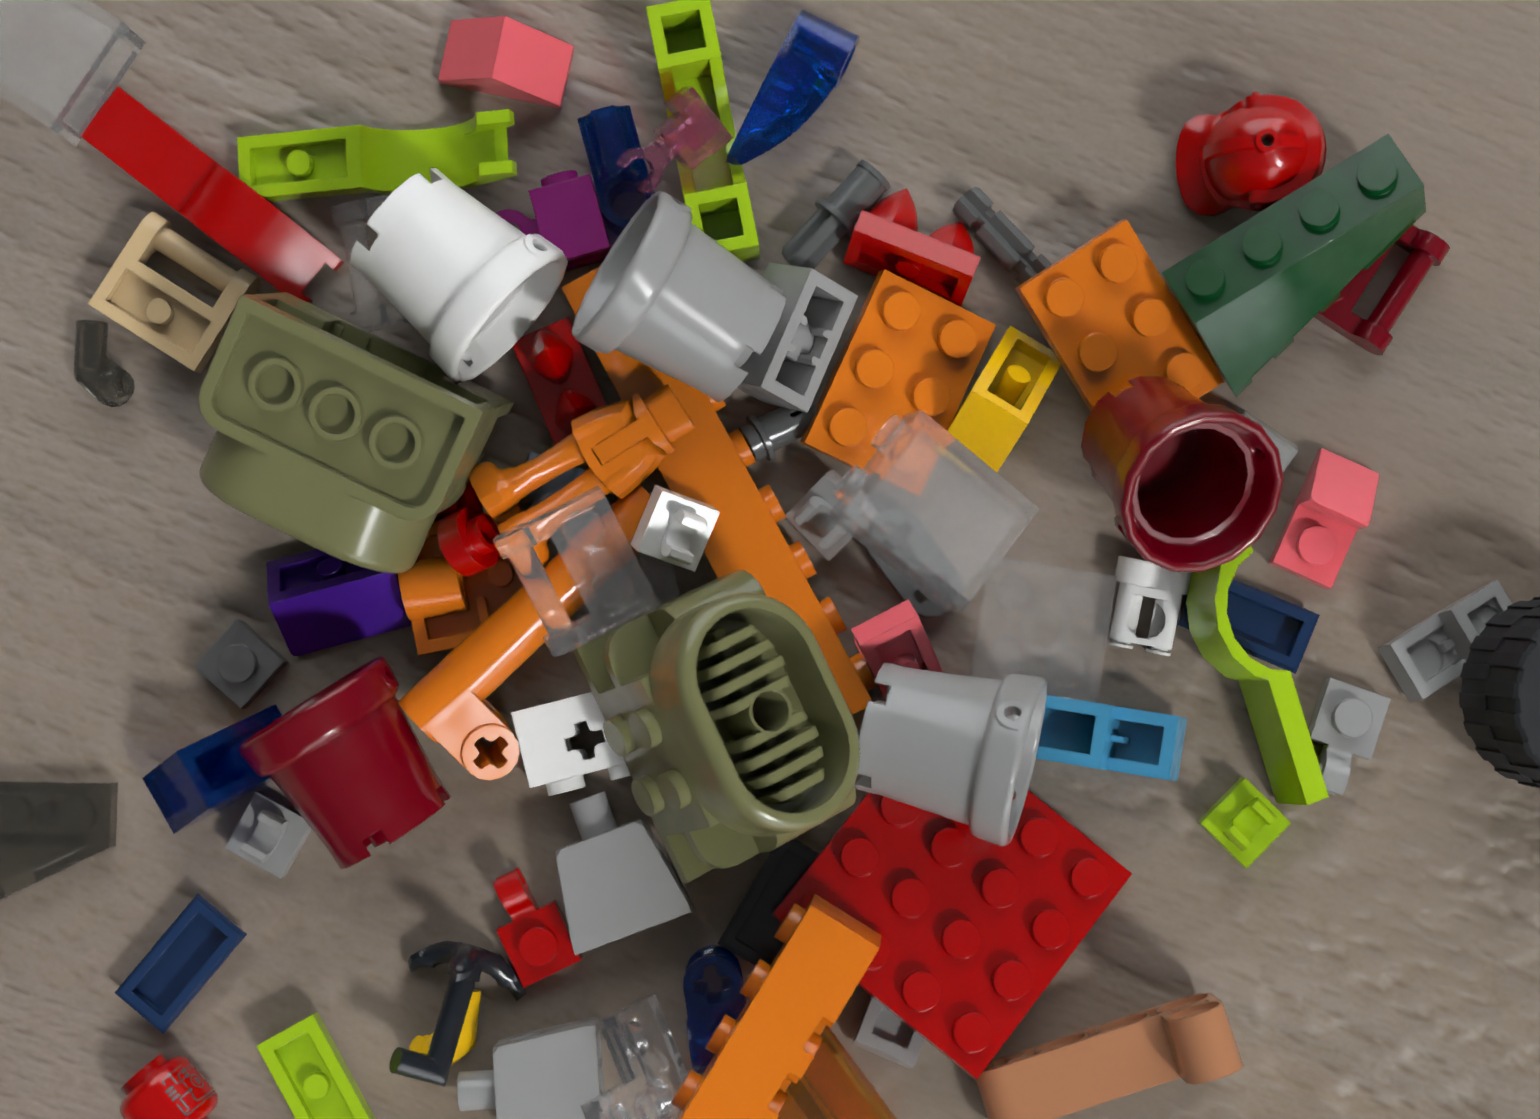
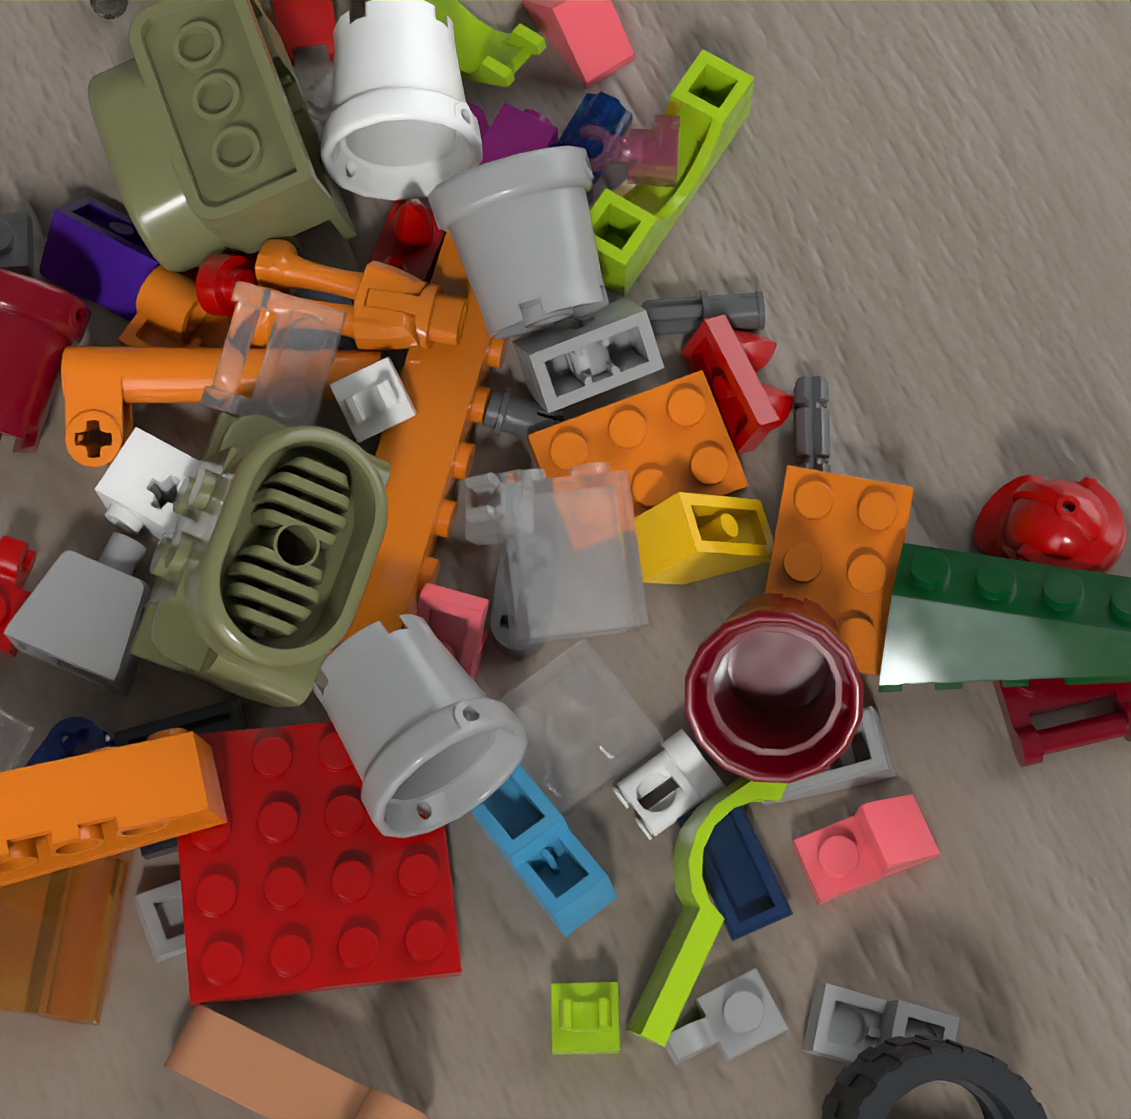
camera: 40 degrees right, 15 degrees down
(795, 85) = (762, 195): clear blue piece -> none

